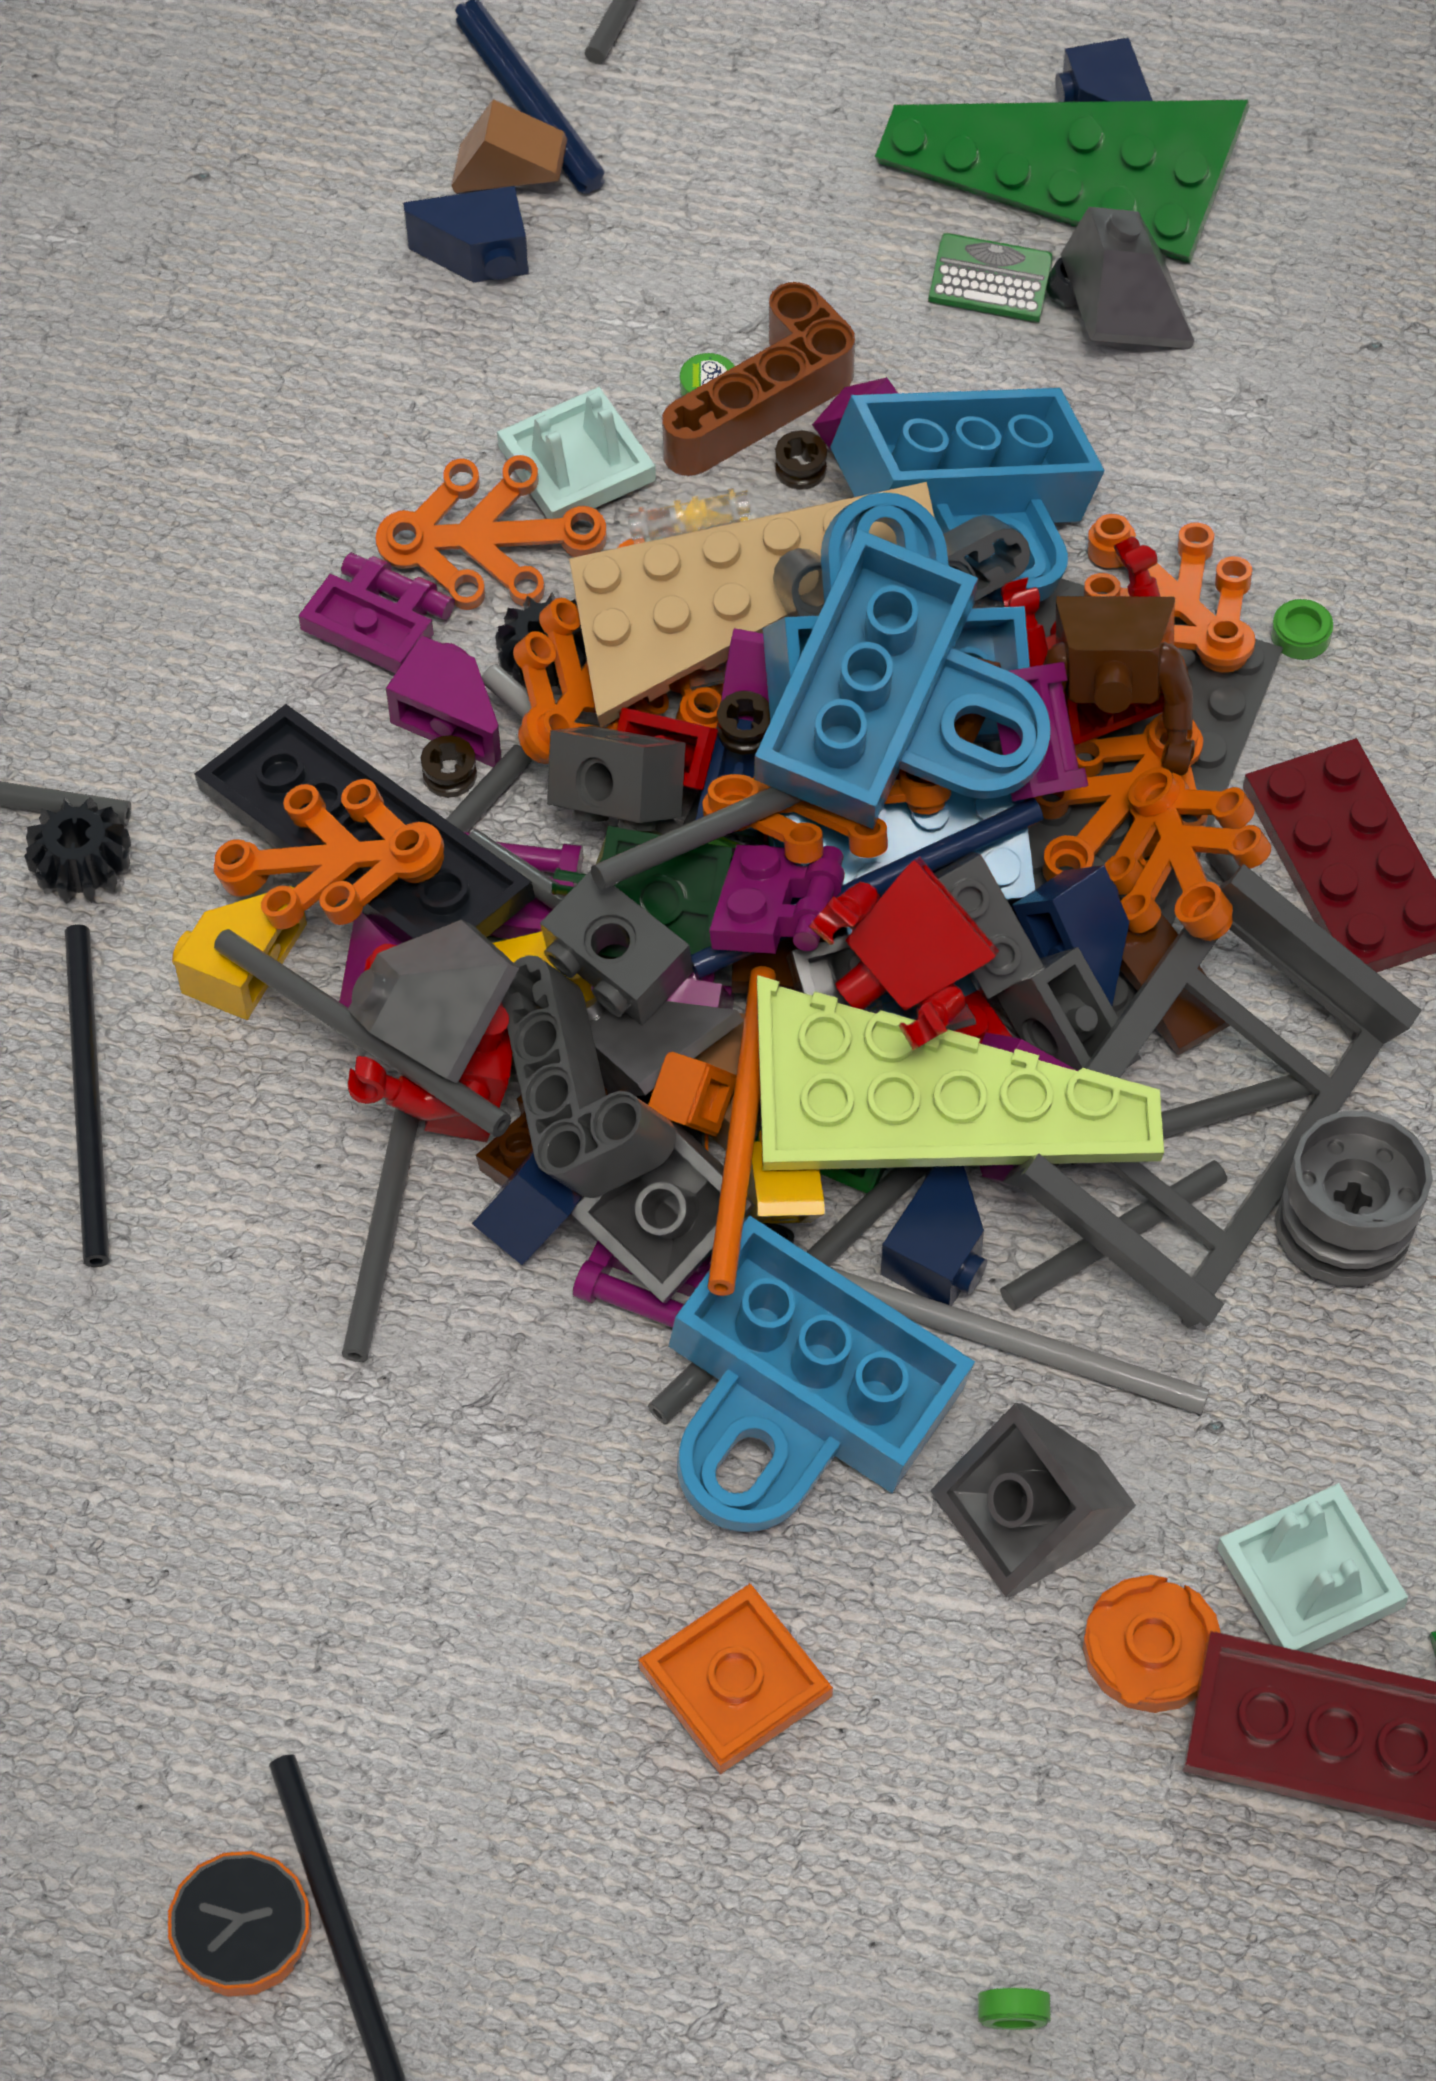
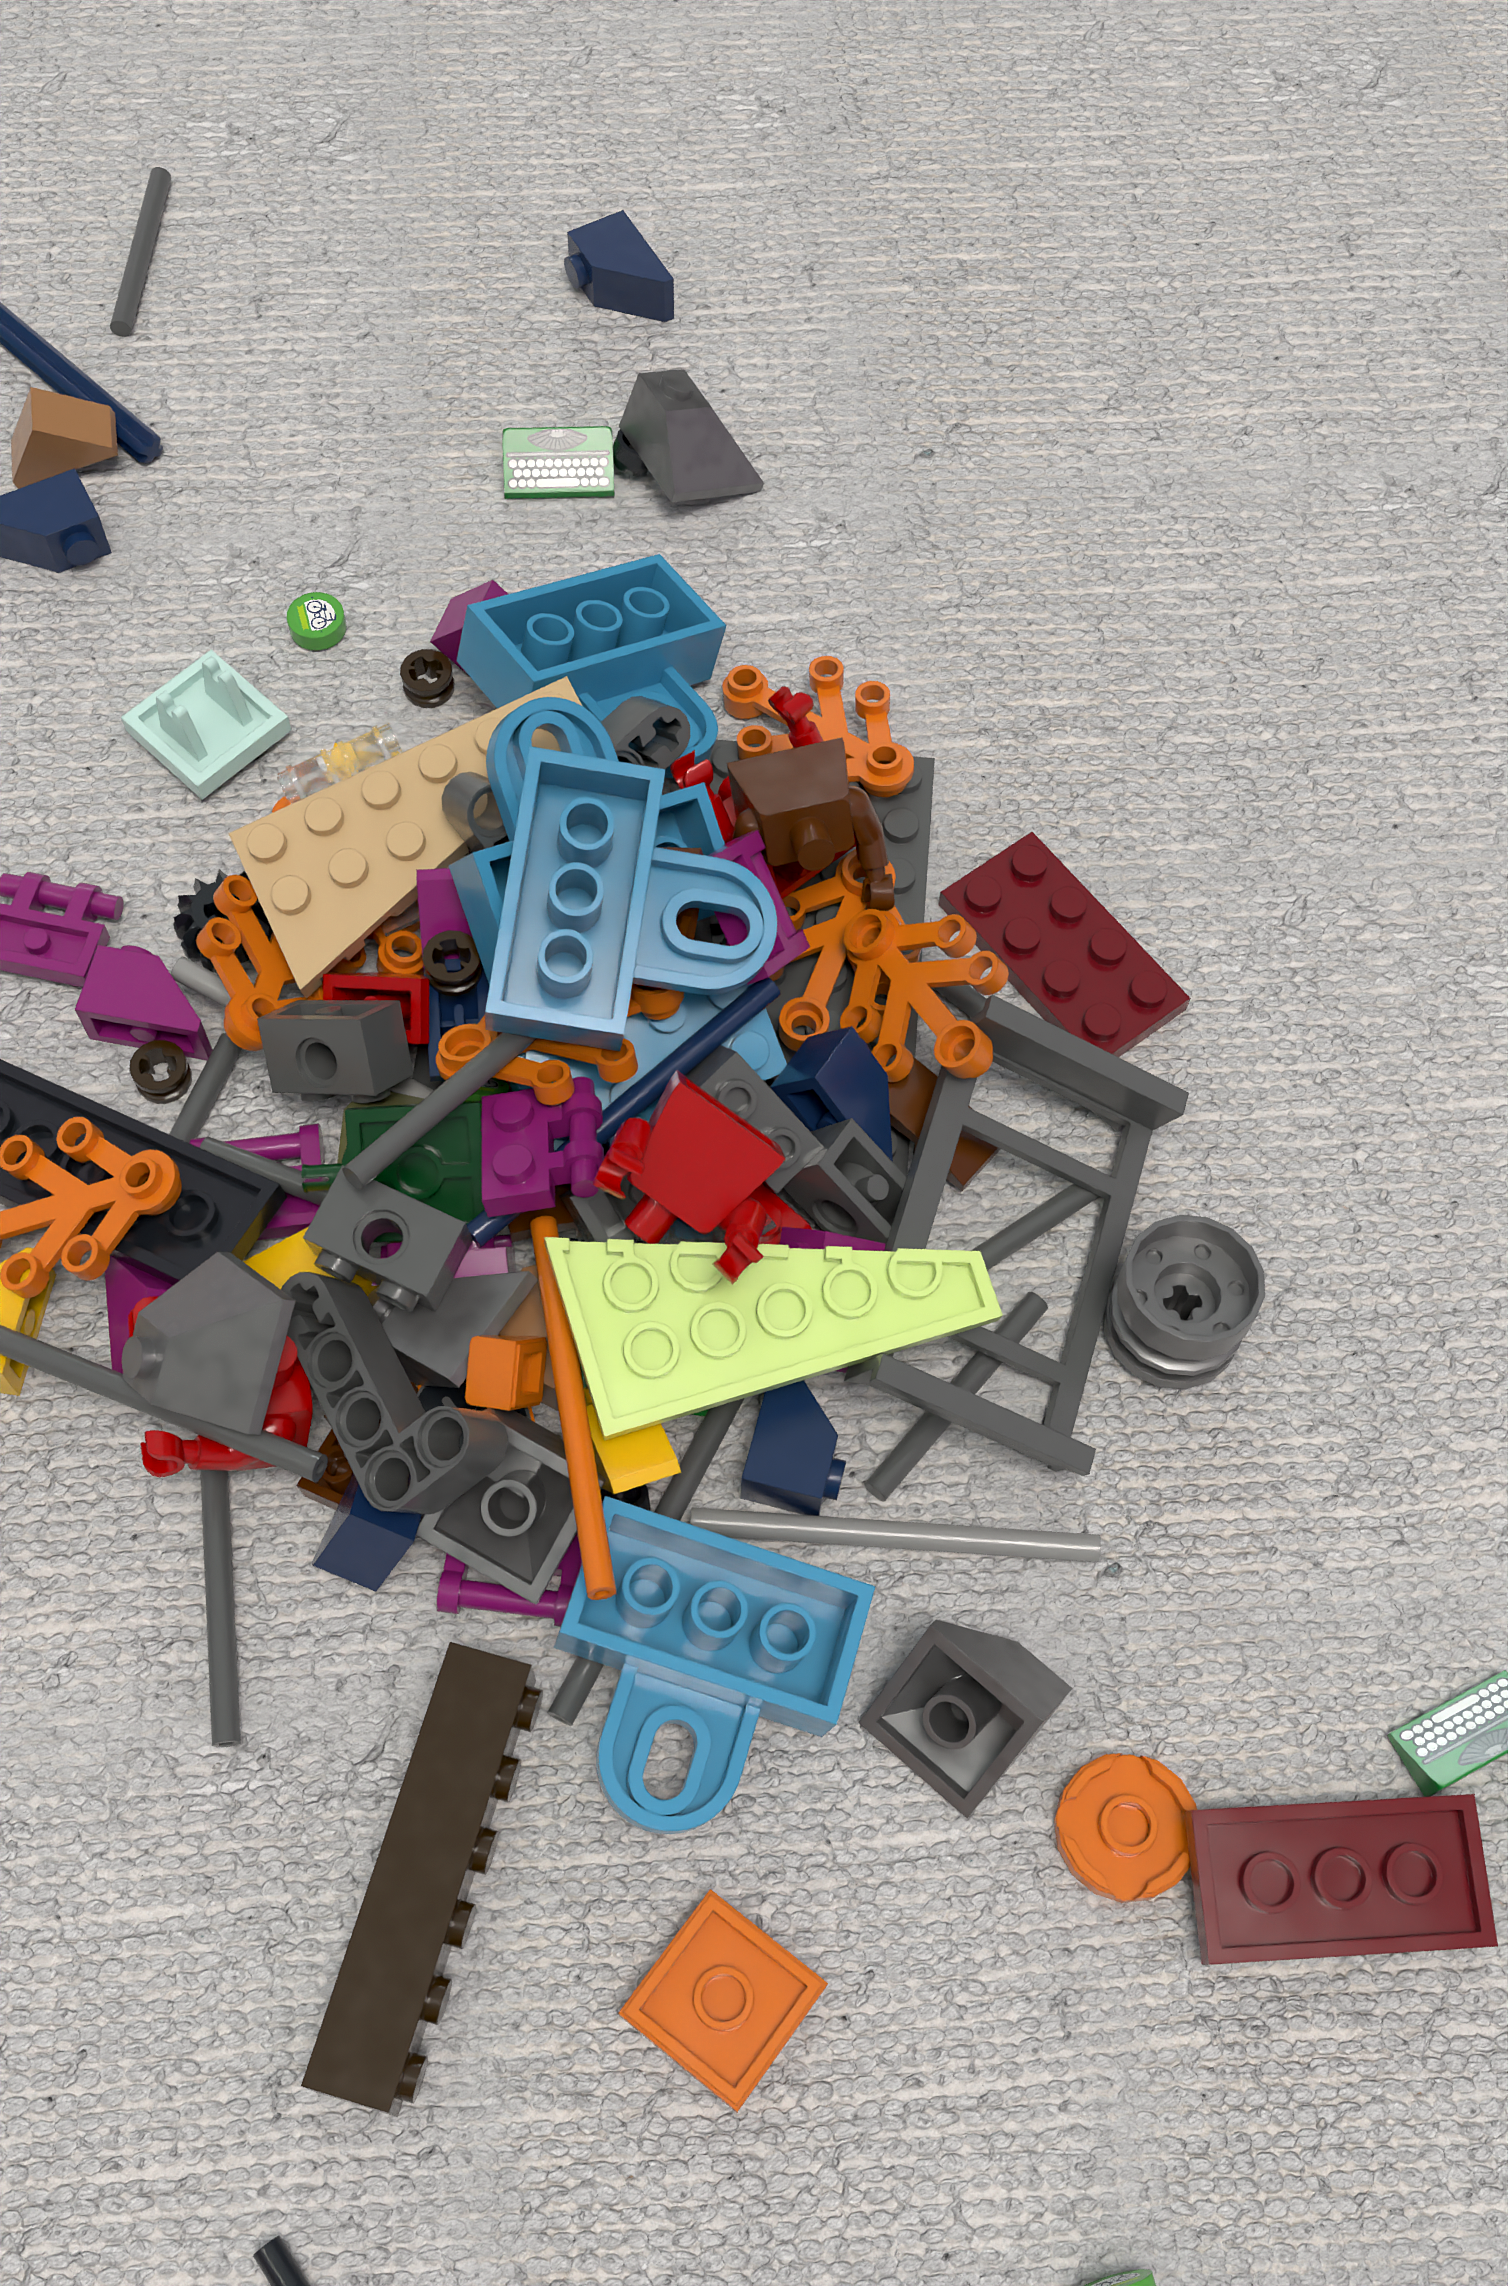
camera: 20 degrees left, 5 degrees up
(481, 534) = (132, 825): orange plant -> none
(498, 1506) = (422, 1881): none -> dark brown brick
(801, 369) = (403, 591): dark orange beam -> none
(1077, 156) = (604, 331): green wing -> none
(1302, 629) = (946, 736): bright green tile -> none
(1312, 1572) = (1260, 1707): light aqua plate -> none

